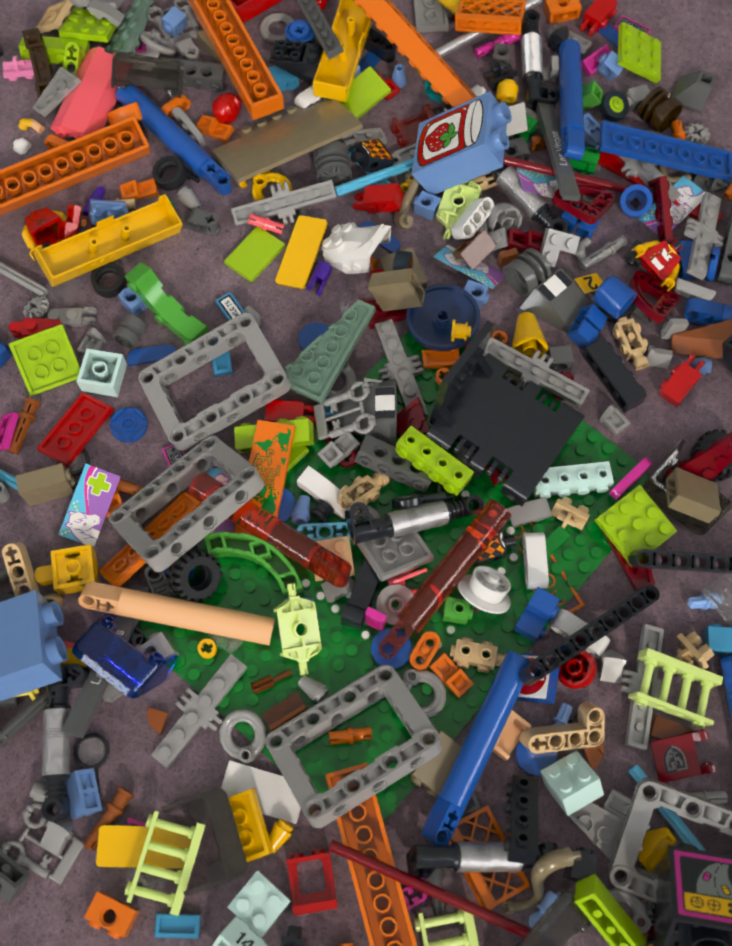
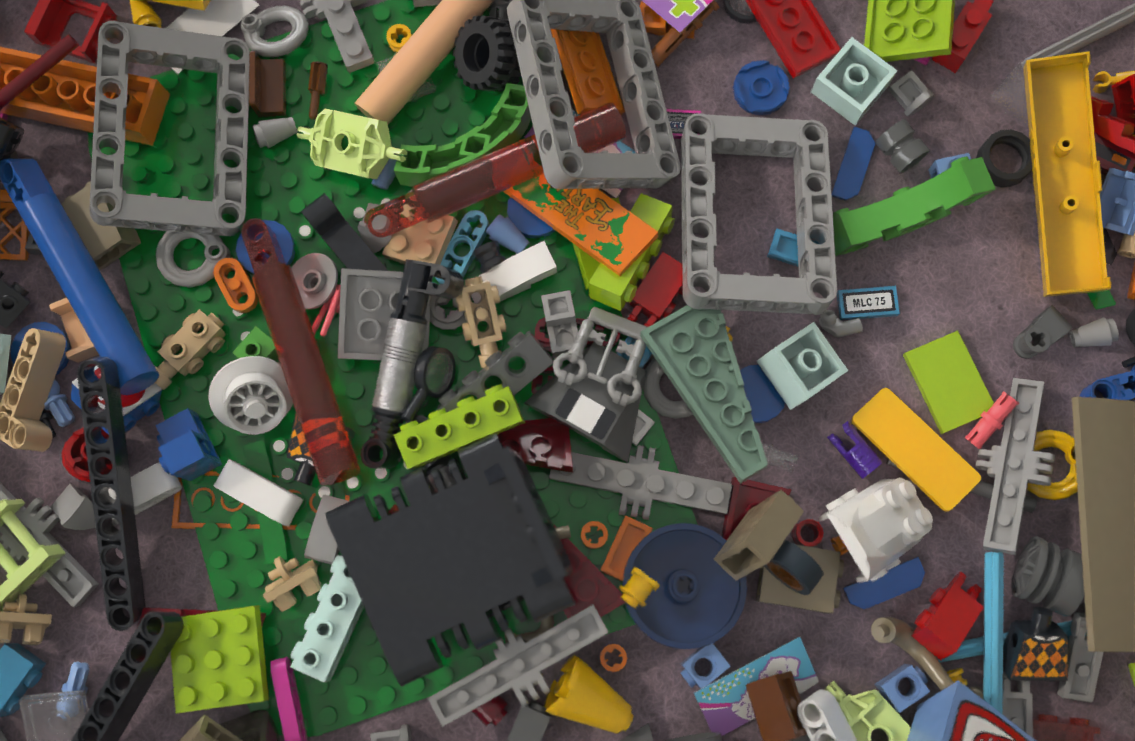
camera: 125 degrees right, 10 degrees up
(40, 302) = (1012, 51): light grey gear -> none
(73, 316) = (972, 82): light grey hinge -> none
(289, 319) = (802, 365): none -> light aqua brick
(350, 735) = (194, 144): orange pin -> none
(375, 619) = (303, 240): dark pink tile -> none
(451, 675) = (183, 301): orange slope -> none

